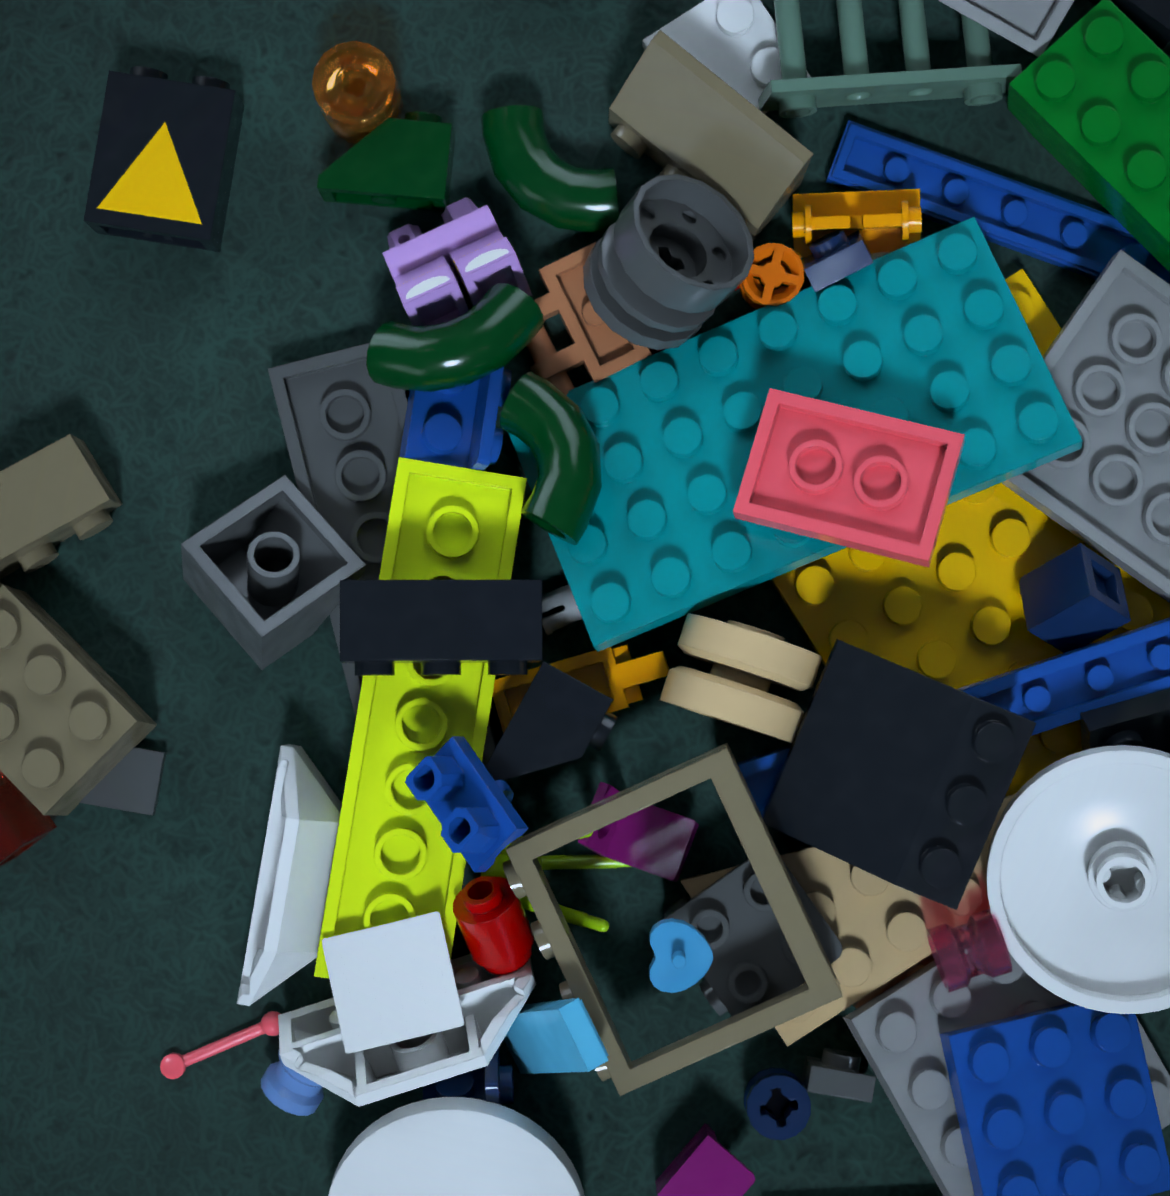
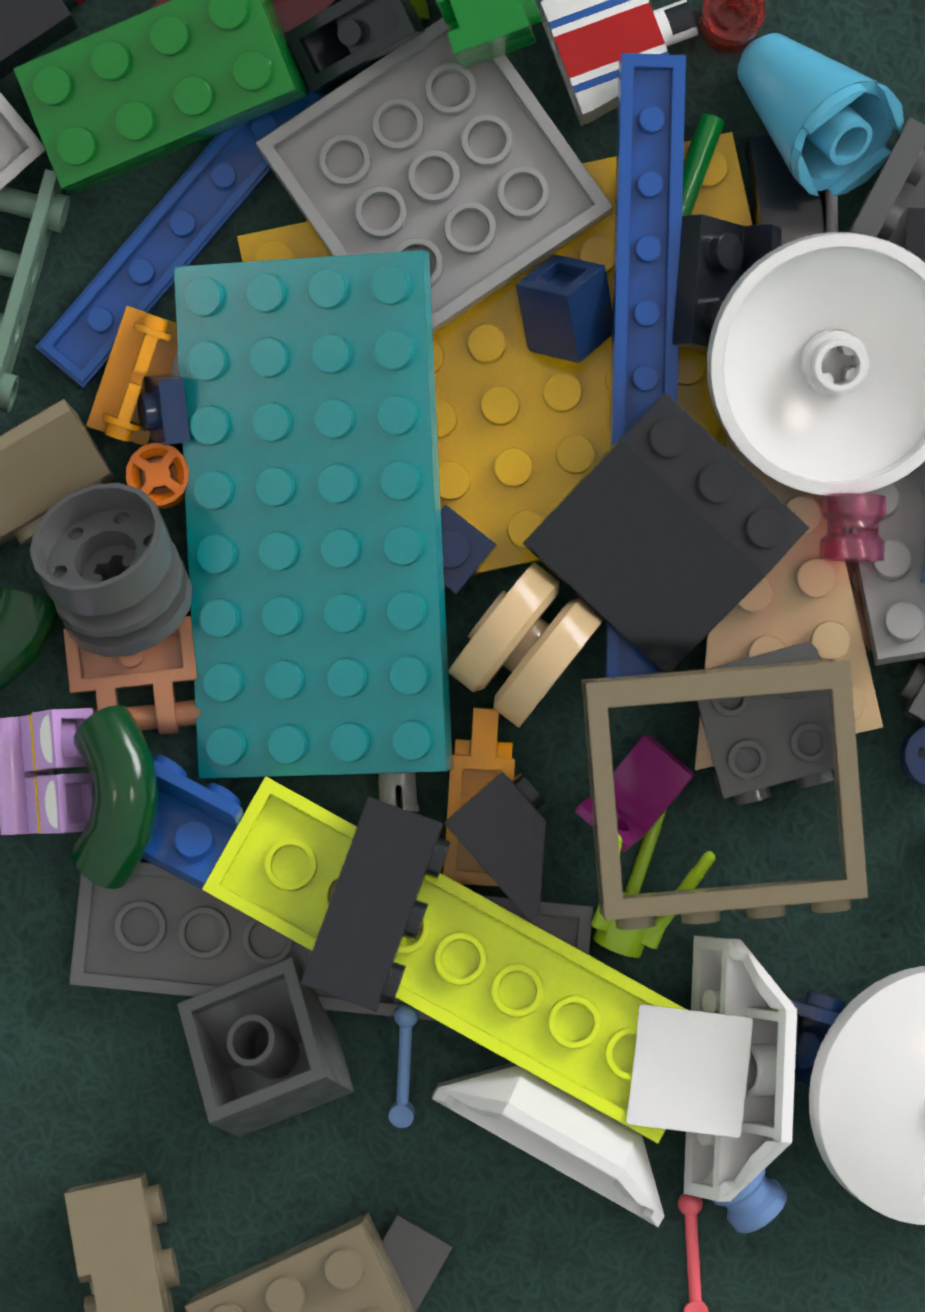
camera: 70 degrees left, 0 degrees up
(262, 721) = (402, 1111): none -> medium blue hinge
(467, 803) = (549, 940): blue hips -> none
(494, 925) = (671, 958): red brick -> none
(555, 1038) = (795, 940): medium azure tile -> none
(564, 454) = (257, 732): dark green cylinder -> none
(679, 957) = (759, 795): dark azure piece -> none
(807, 586) = (463, 550): none -> dark blue plate
(849, 477) = (377, 478): coral plate -> none

